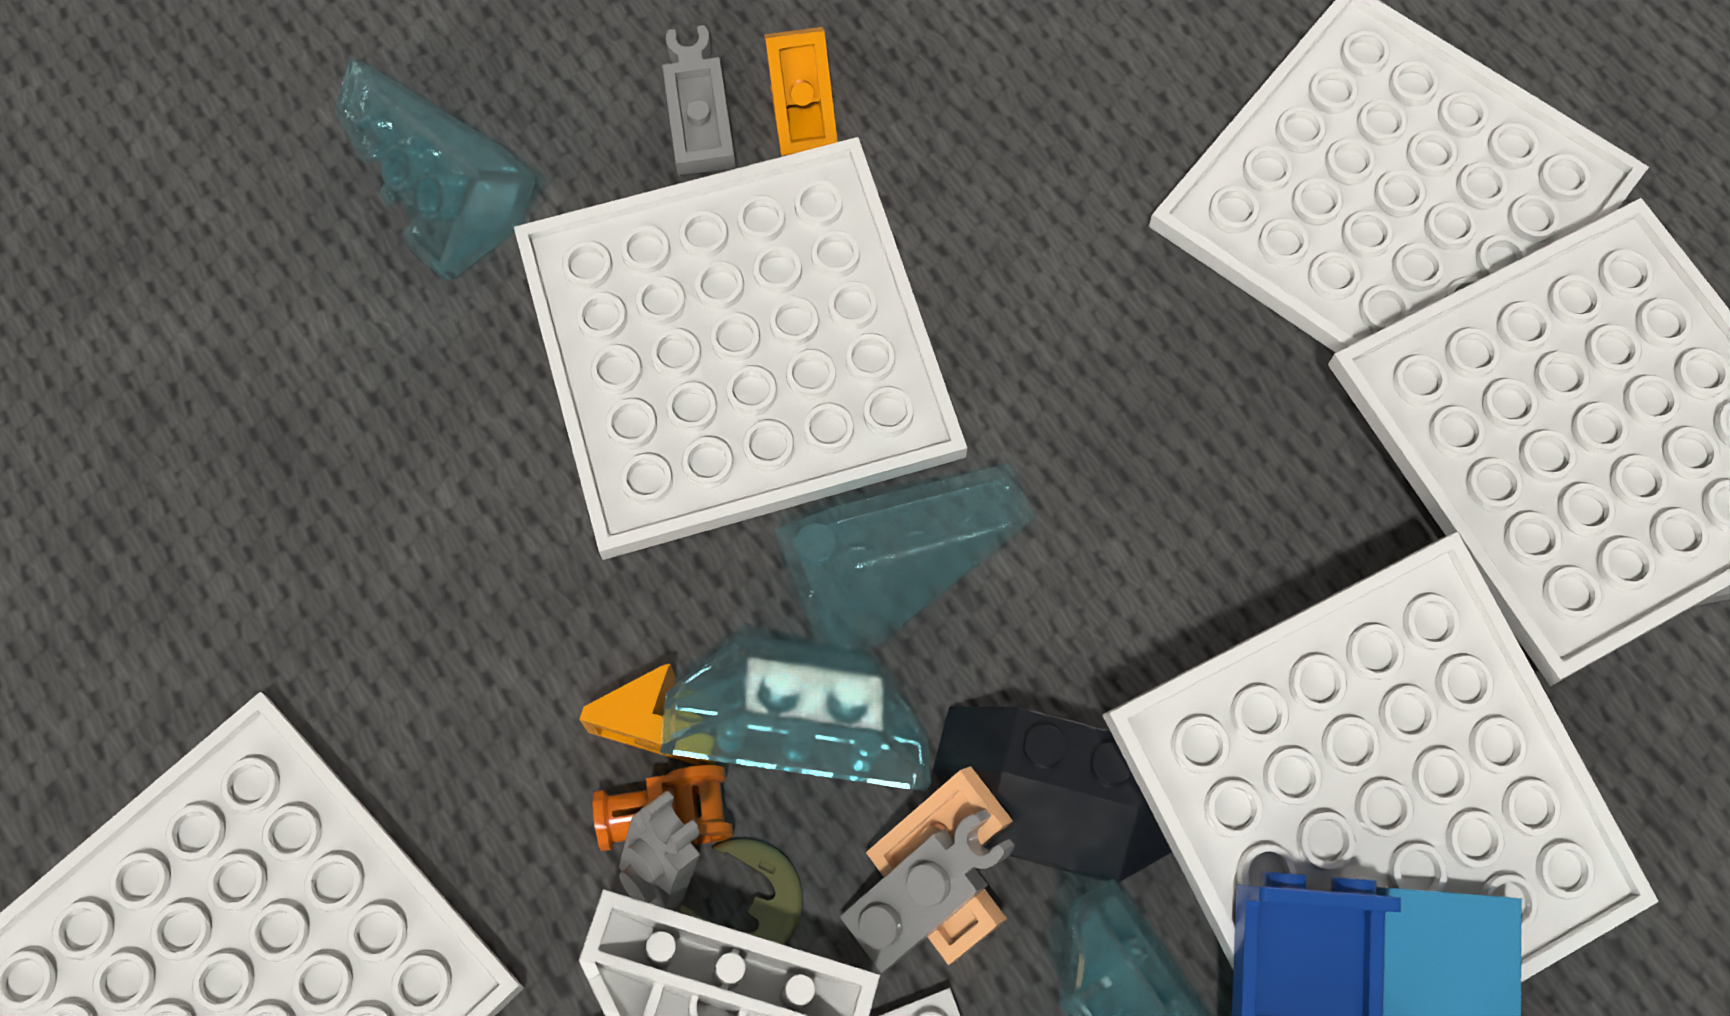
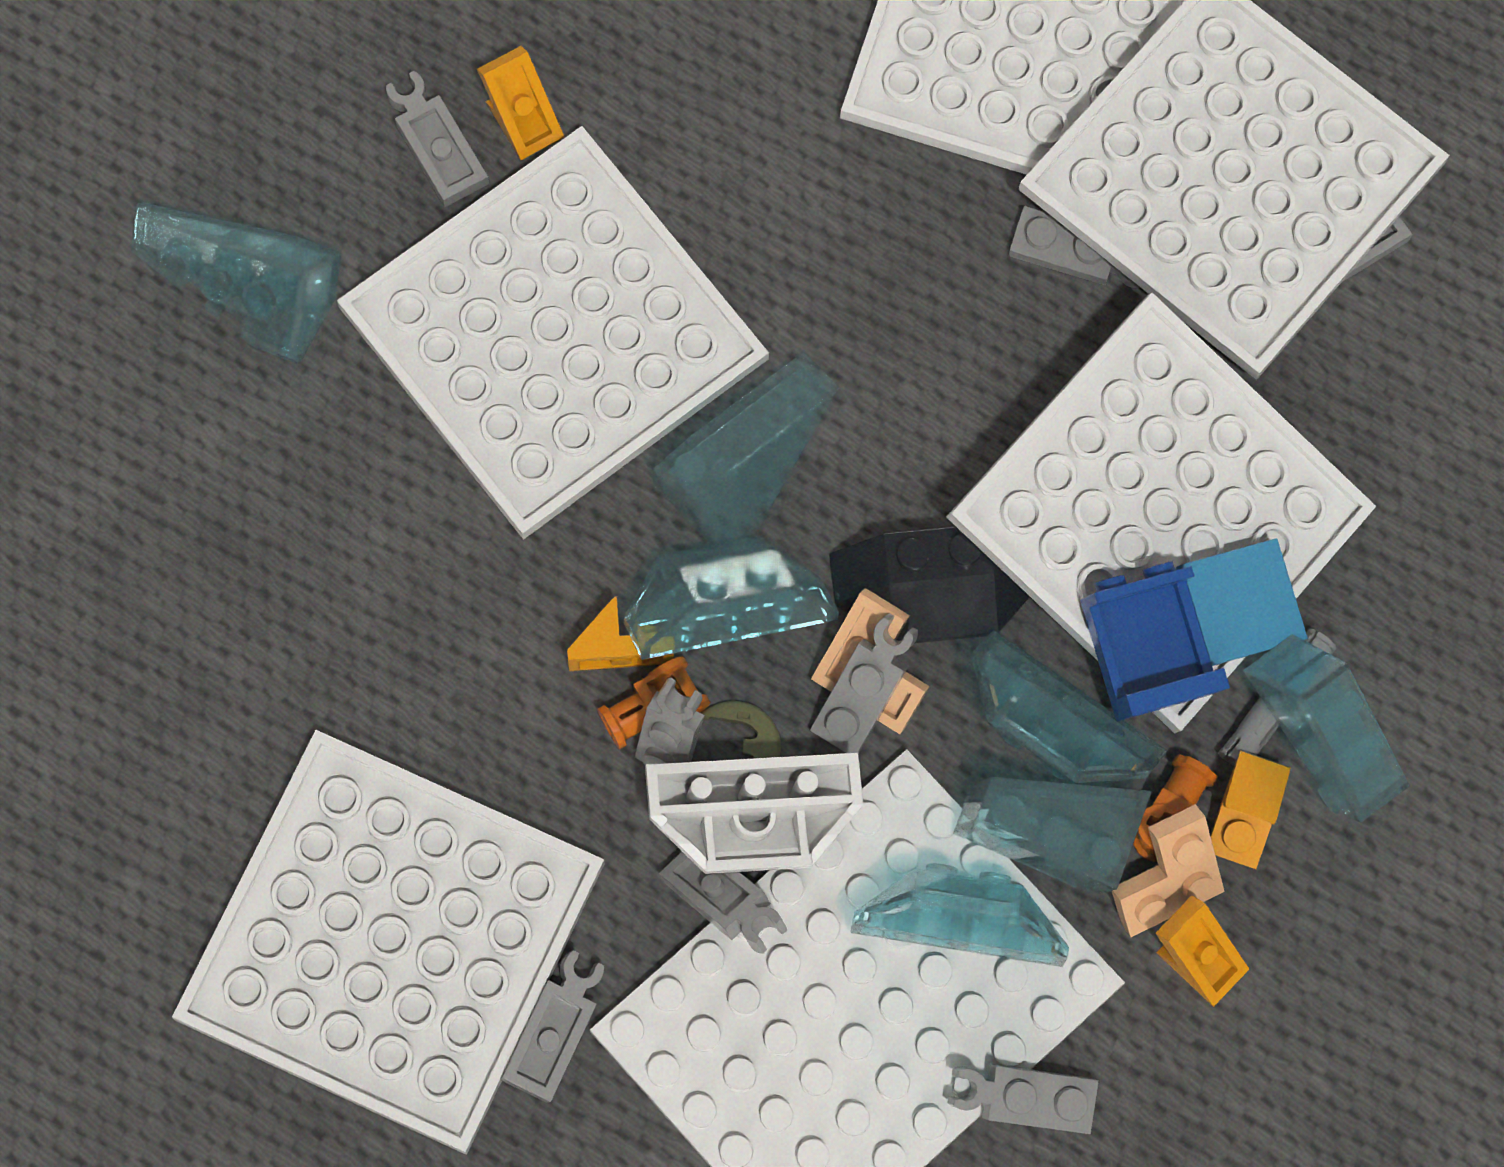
camera: 25 degrees left, 5 degrees up
(1348, 445) = (1051, 245): none -> light grey plate

